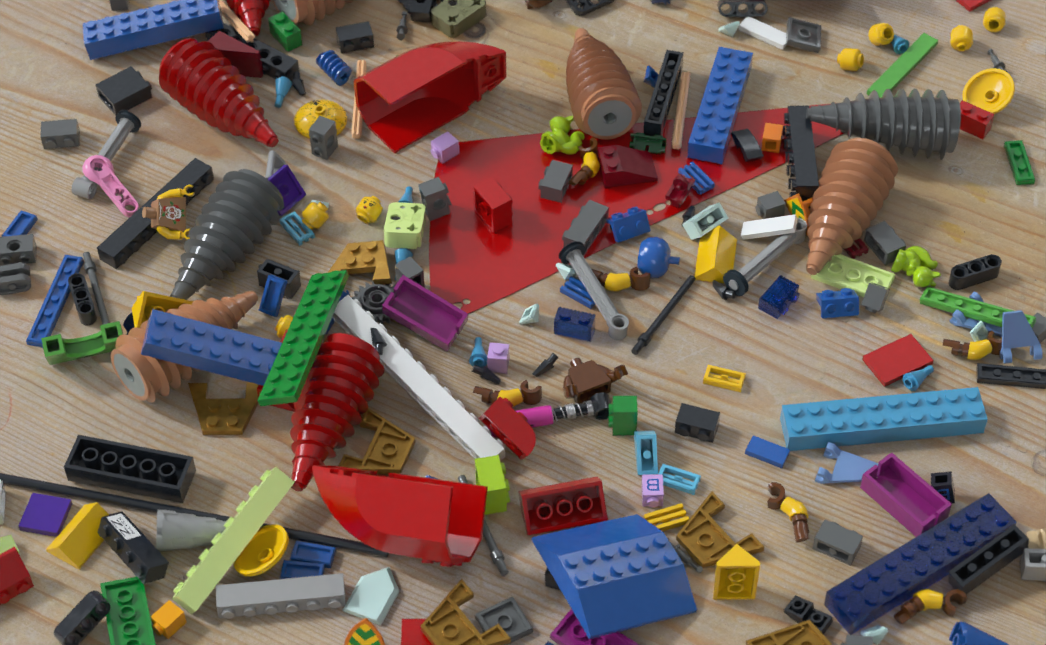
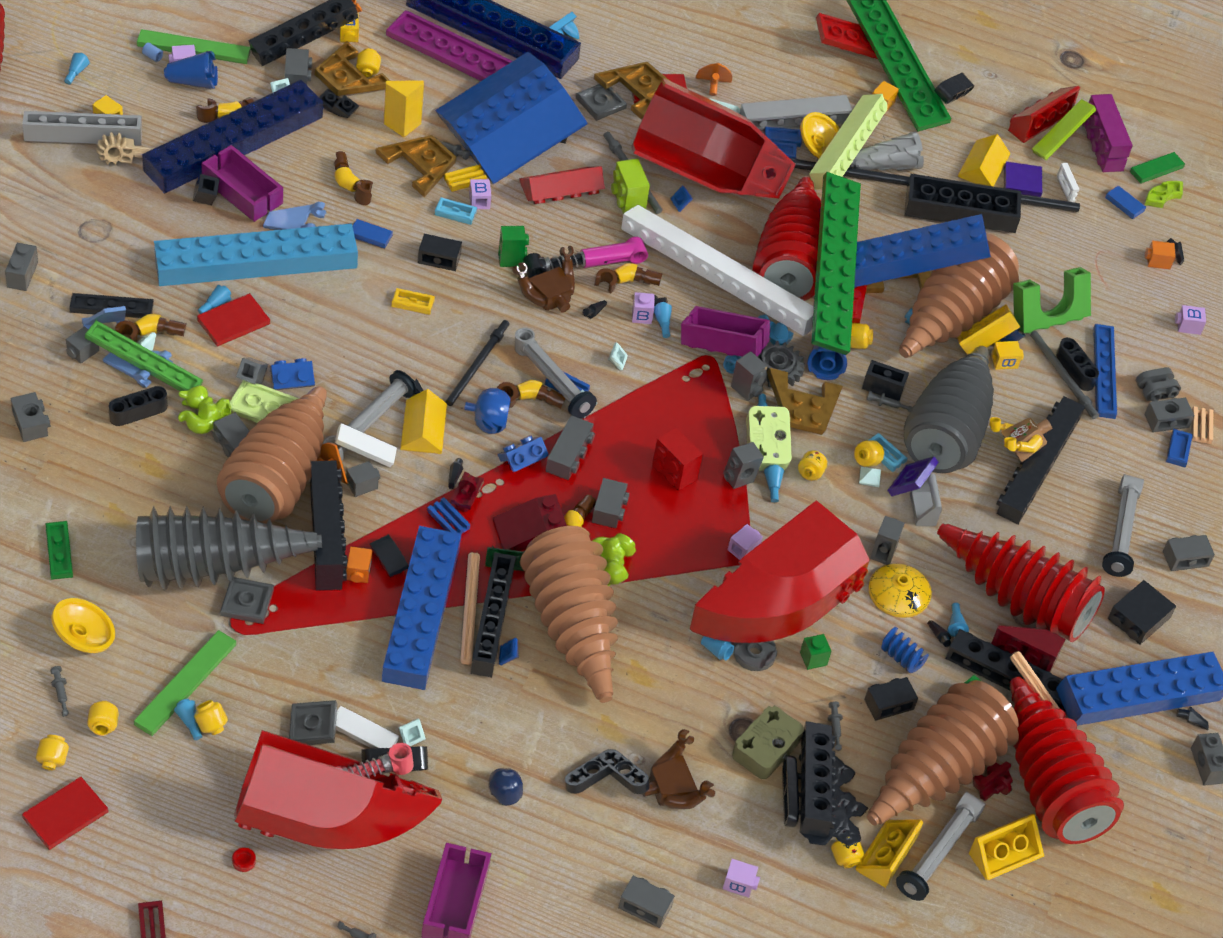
camera: 165 degrees right, 0 degrees up
(109, 182) = (1103, 482): bright pink beam -> none
(133, 547) = (936, 142): black brick -> none
(273, 295) = (885, 360): blue tile -> none
(357, 118) = (865, 630): light nougat axle -> none
(377, 340) = (765, 281): black bar -> none
(387, 450) = (733, 227): pearl gold wing -> none
(510, 427) = (623, 218): red brick -> none
(574, 324) = (570, 342): clear blue brick -> none
(646, 452) = (488, 228): medium azure slope -> none
(705, 221) = (437, 452): light aqua brick -> none
(779, 297) = (356, 375): clear blue brick -> none
(837, 542) = (308, 153): dark grey brick -> none
(850, 59) = (254, 682): yellow head -> none
(975, 120) = (109, 594): red brick -> none
(988, 560) = (170, 125): black brick -> none

